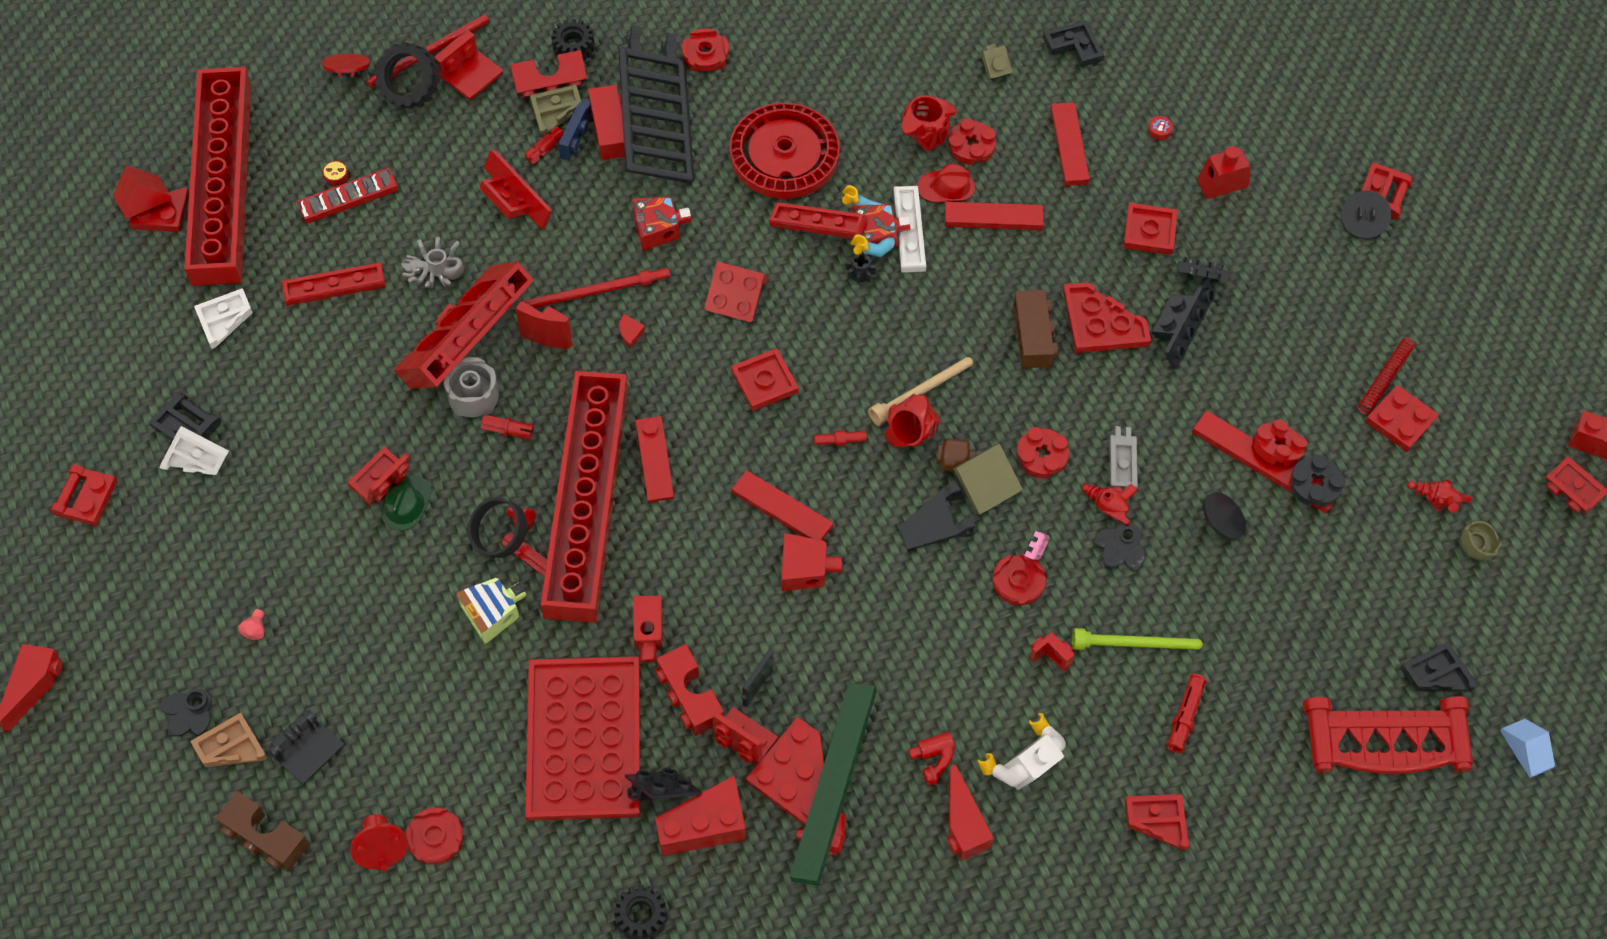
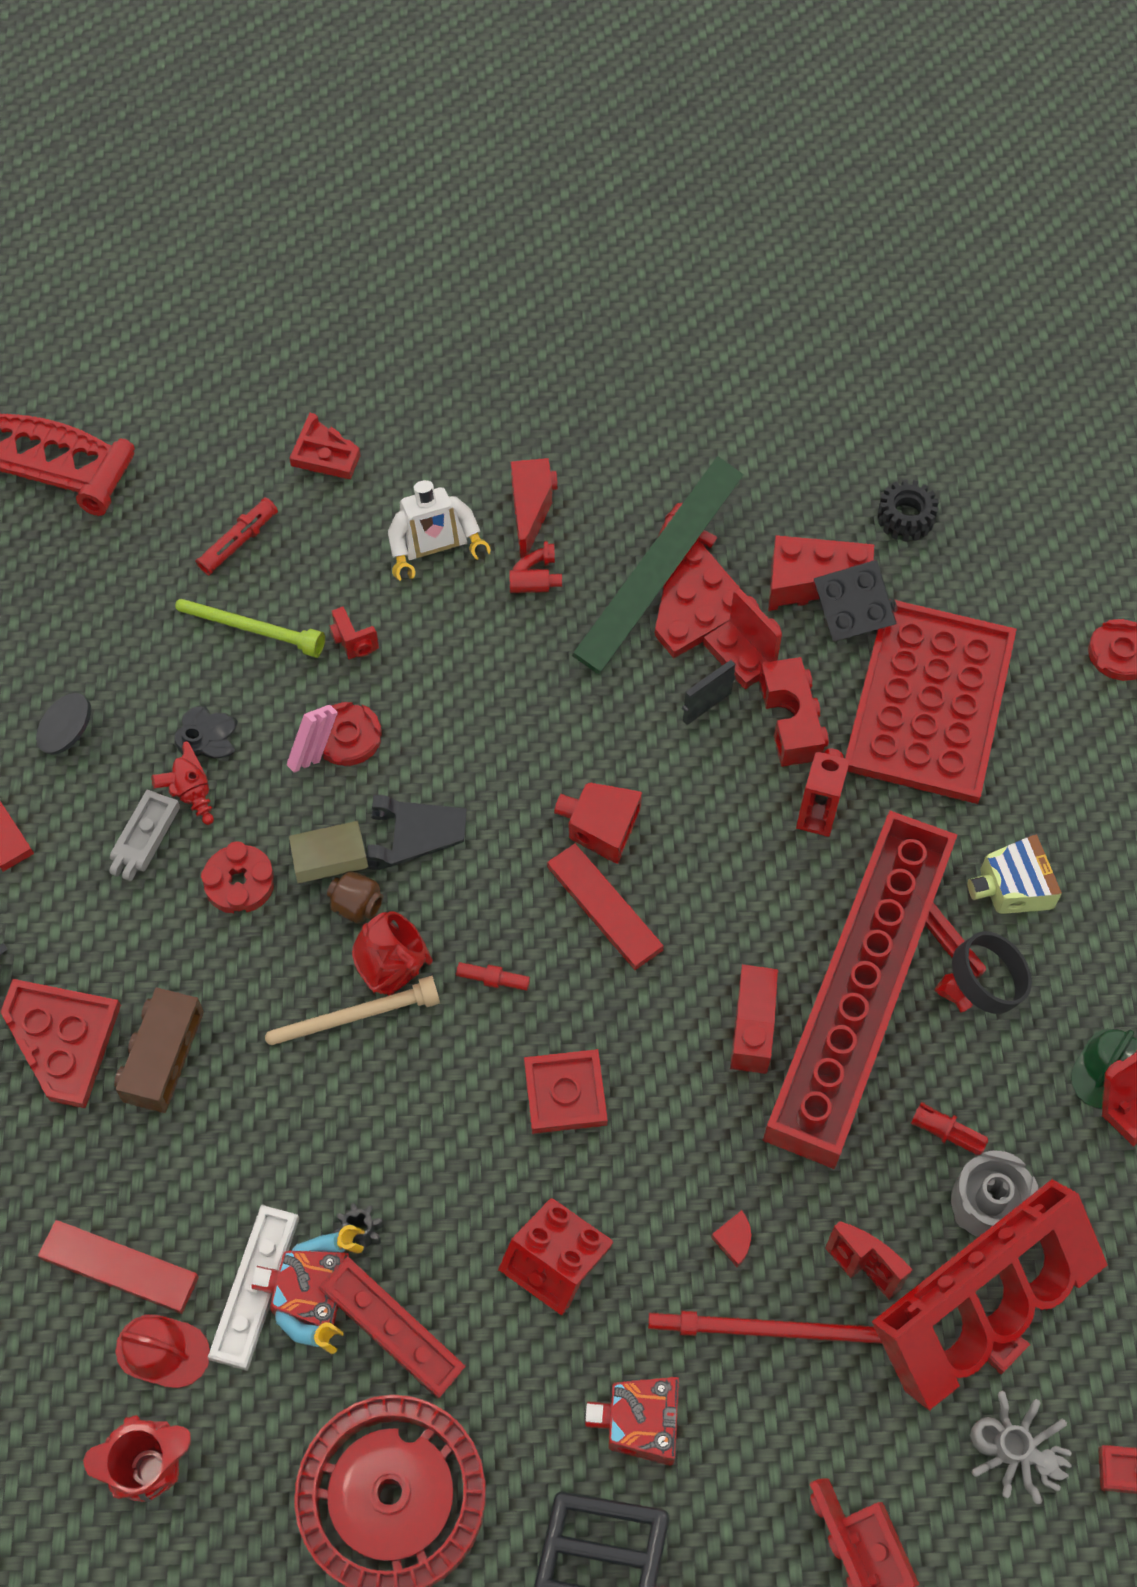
camera: 160 degrees left, 0 degrees up
(976, 131) = (60, 1411): red plate -> none

